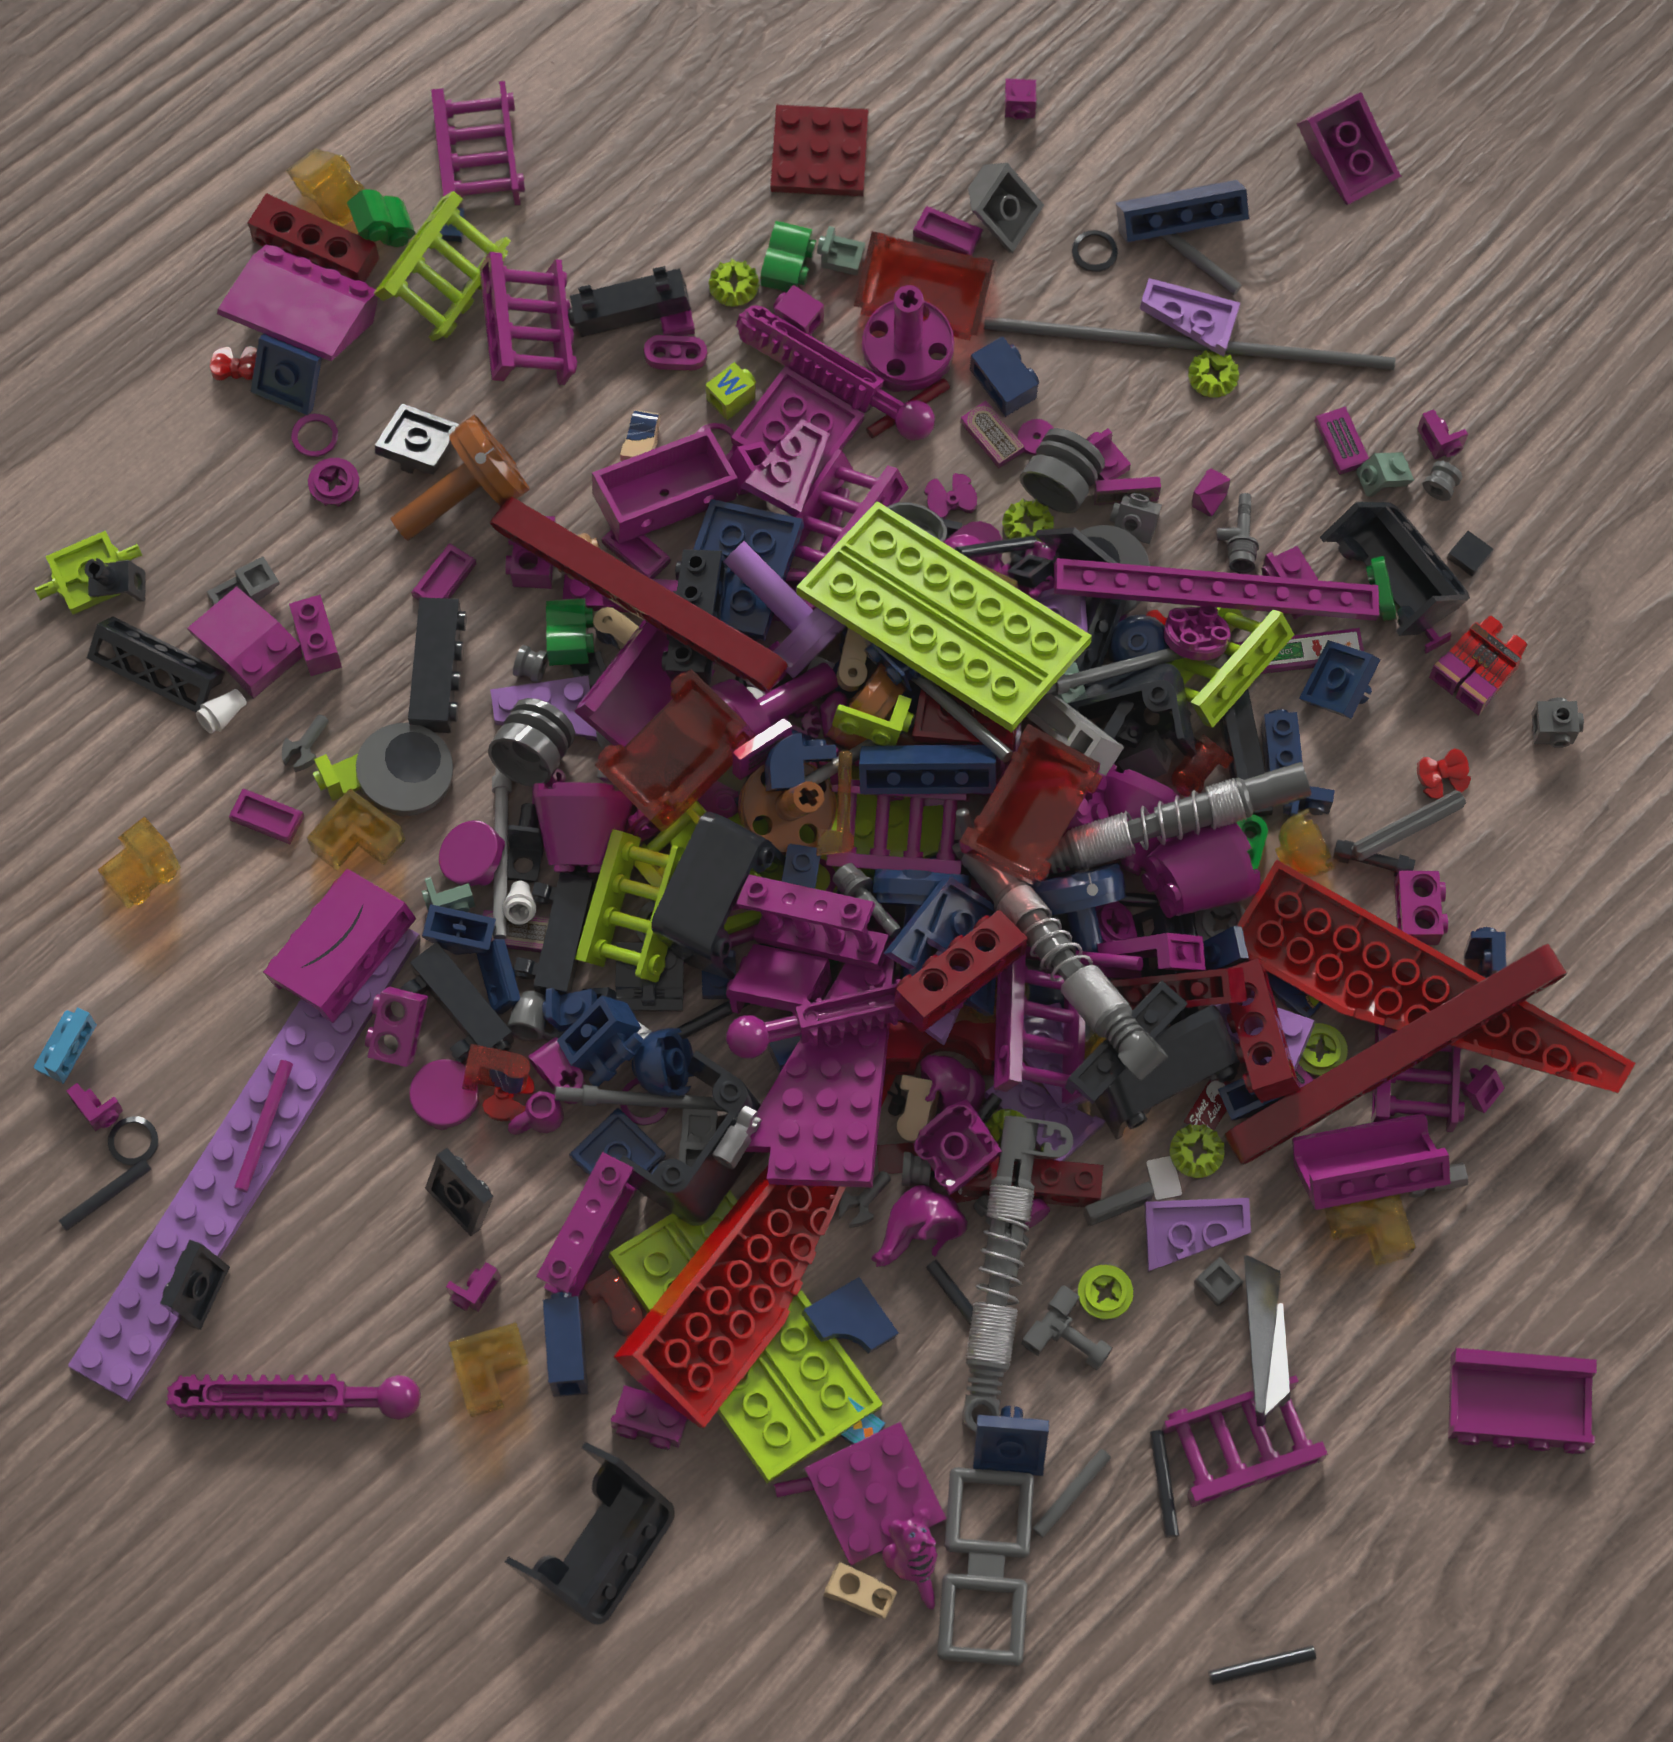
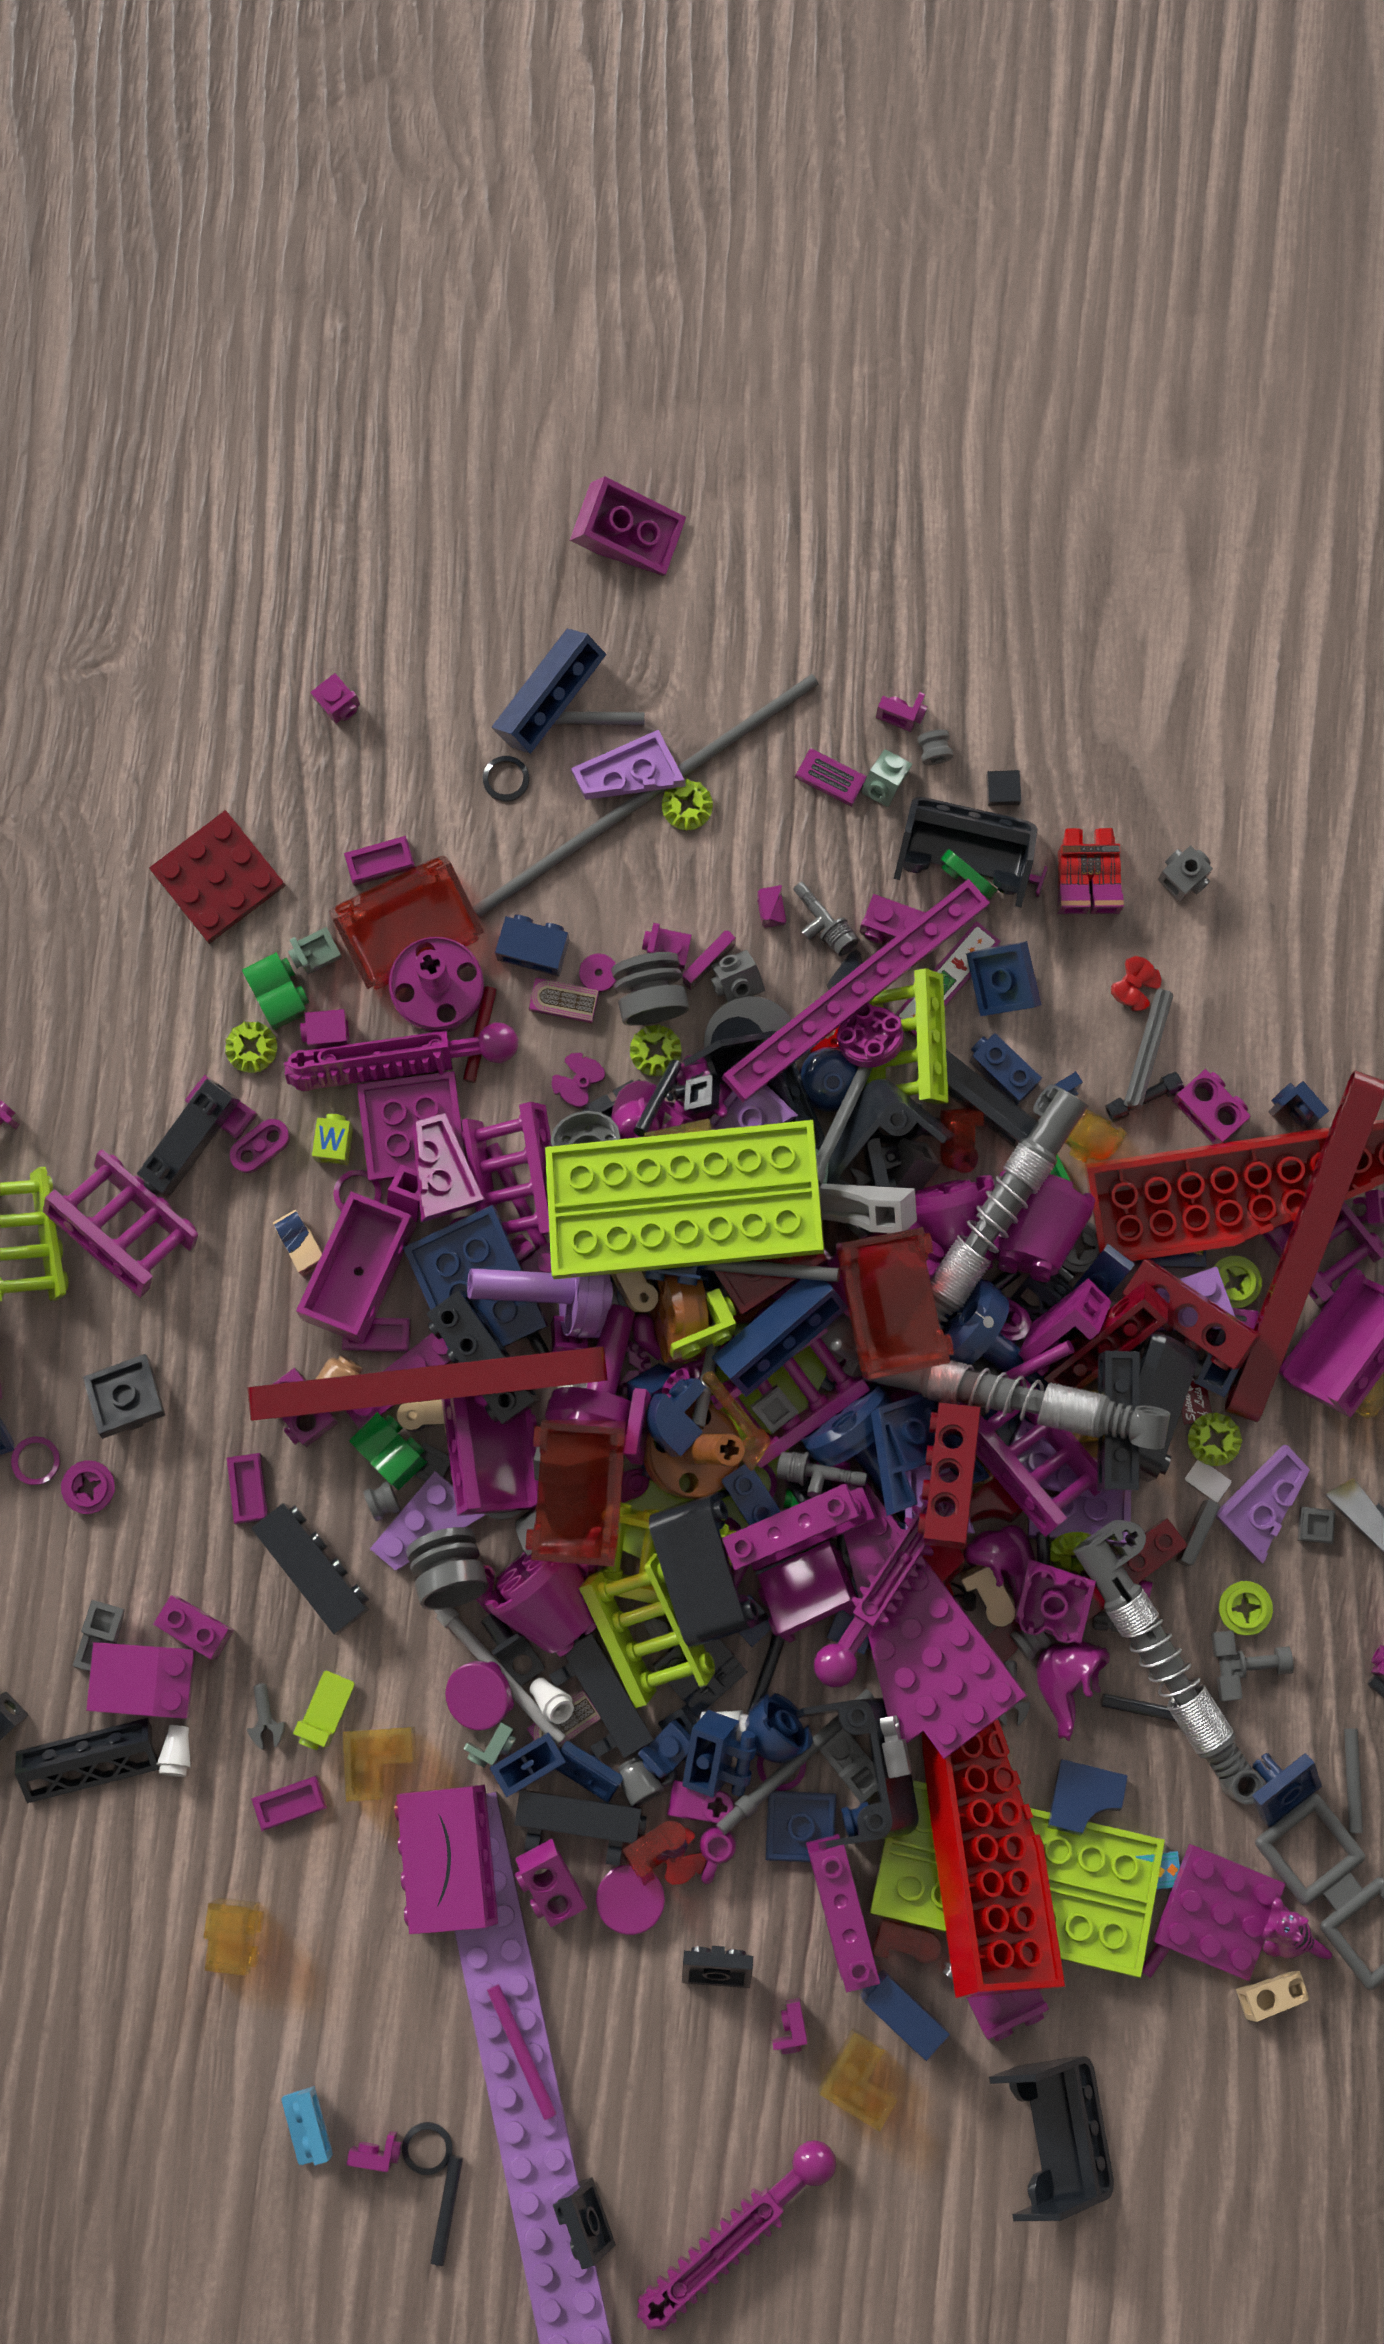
camera: 40 degrees left, 10 degrees up
(404, 769) = (364, 1673): dark grey piece -> none
(484, 465) = (202, 1375): dark orange piece -> none
(875, 828) = (774, 1409): none -> dark grey tile
(1003, 203) = (404, 802): dark grey slope -> none

